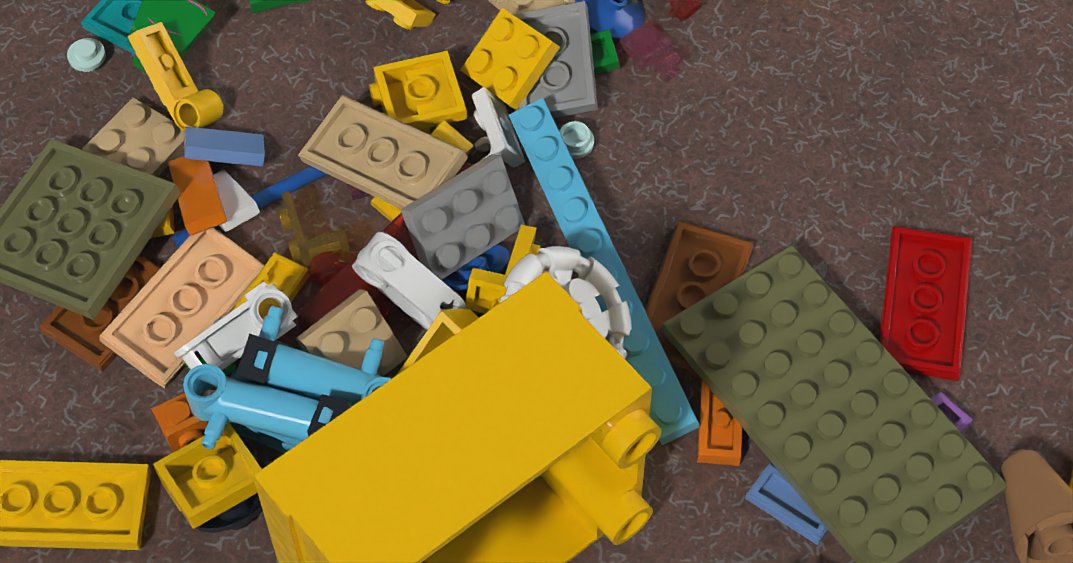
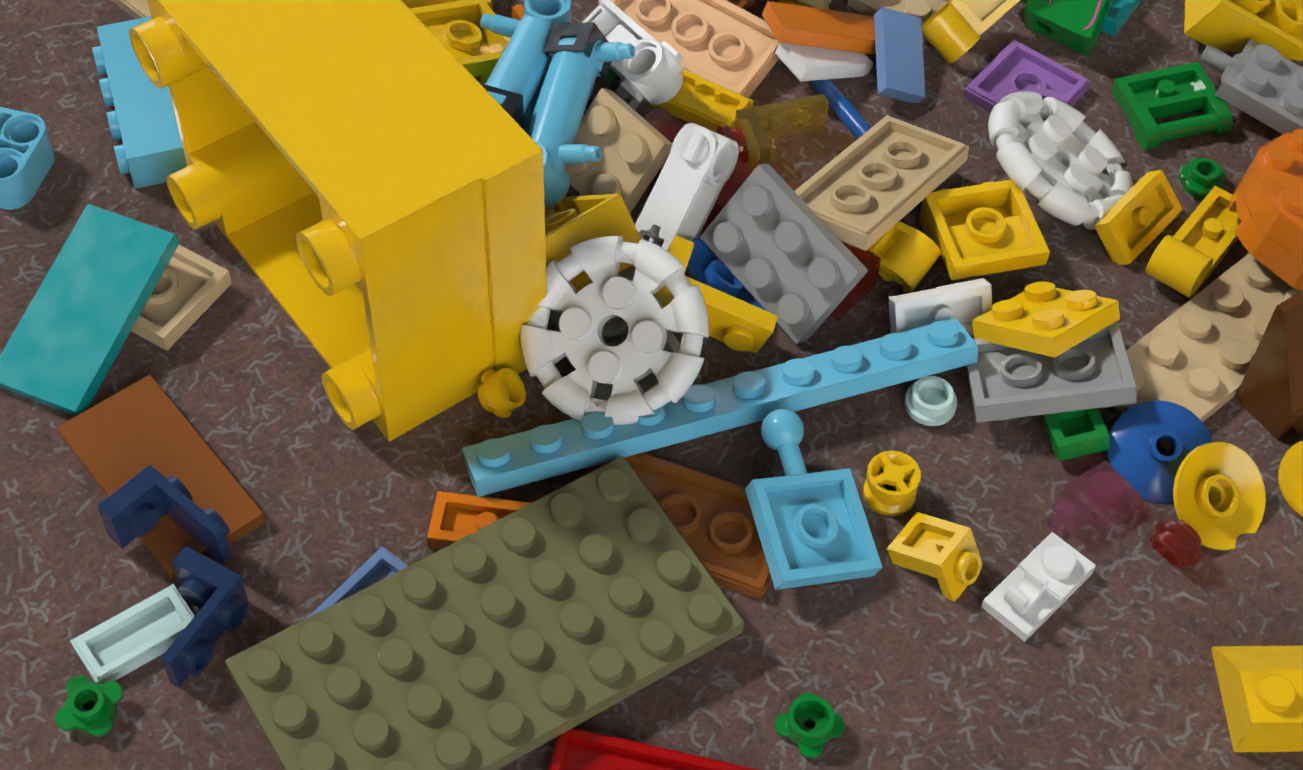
camera: 90 degrees right, 5 degrees down
(241, 69) = (1024, 69): none -> medium lavender tile
(342, 42) = (1058, 157): none -> white plate
(654, 153) = (895, 470): none -> yellow wheel
(695, 206) = (809, 521): none -> medium azure plate
(708, 138) = (939, 551): none -> yellow bracket
(723, 85) = (1038, 586): none -> white plate
(851, 206) = (813, 709): none -> green plate

